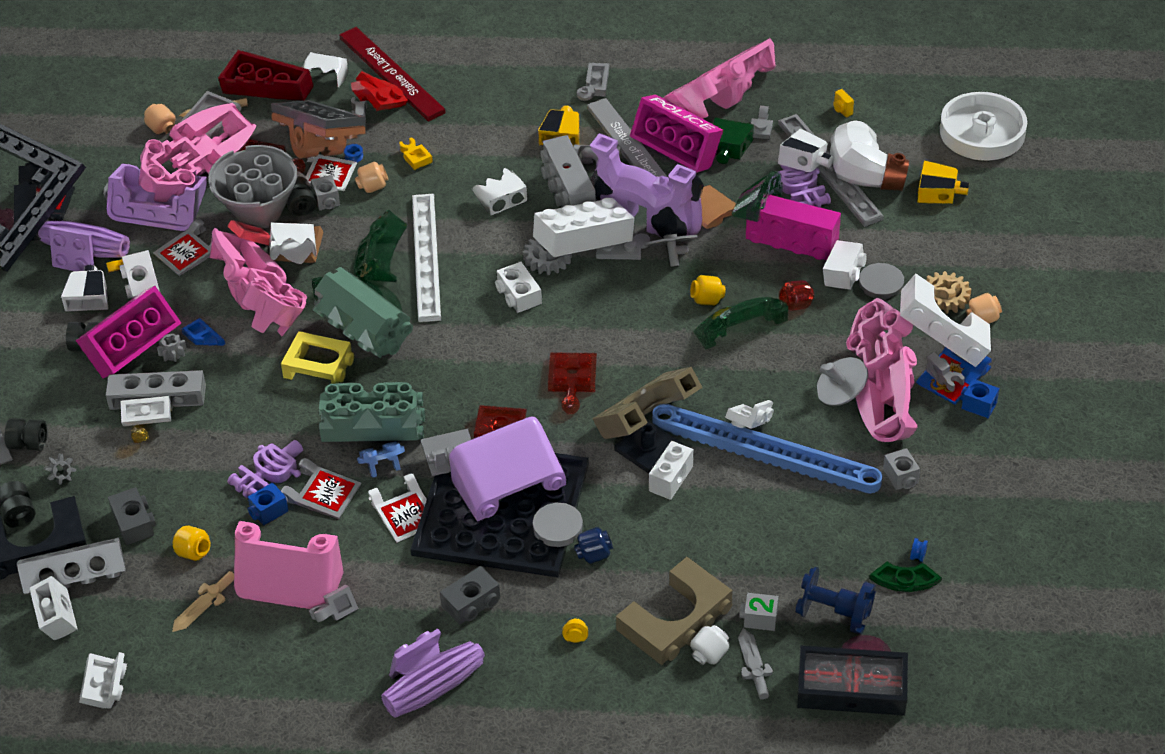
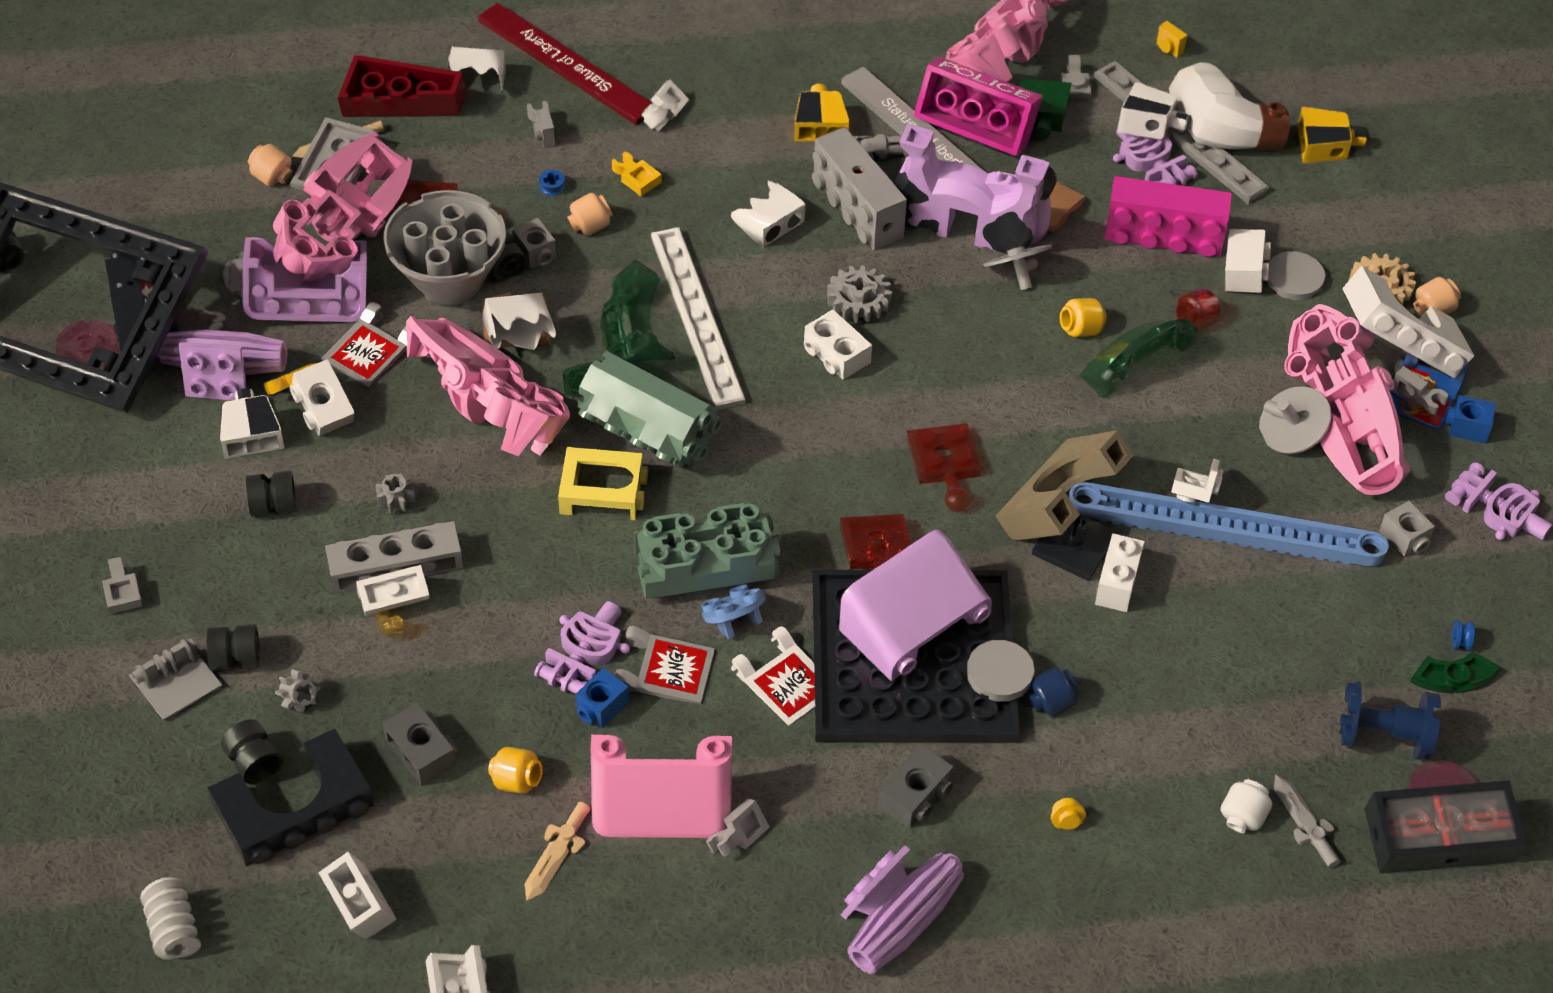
camera: 15 degrees left, 5 degrees up
(109, 550) = (410, 798): light grey brick -> none
(128, 332) = (334, 480): dark pink brick -> none
(202, 334) = (428, 467): blue tile -> none
(249, 232) = (453, 314): coral tile -> none
(317, 127) = (501, 153): piece -> none
(324, 165) = (524, 206): flag -> none
(378, 92) = (567, 94): red plate -> none
(438, 449) = (820, 588): light grey hinge -> none
(454, 107) = (665, 105): none -> white plate
(583, 227) = (902, 252): white brick -> none
(595, 82) = (842, 44): light grey hinge -> none
(626, 250) = (951, 272): light grey hinge -> none
(665, 638) = (1184, 806): dark tan arch -> none
(755, 196) = (1118, 185): clear green windscreen -> none
(759, 611) = (1295, 750): light grey brick -> none
(983, 126) = (1355, 50): white piece -> none
(990, 460) = (1521, 517): none -> lavender torso

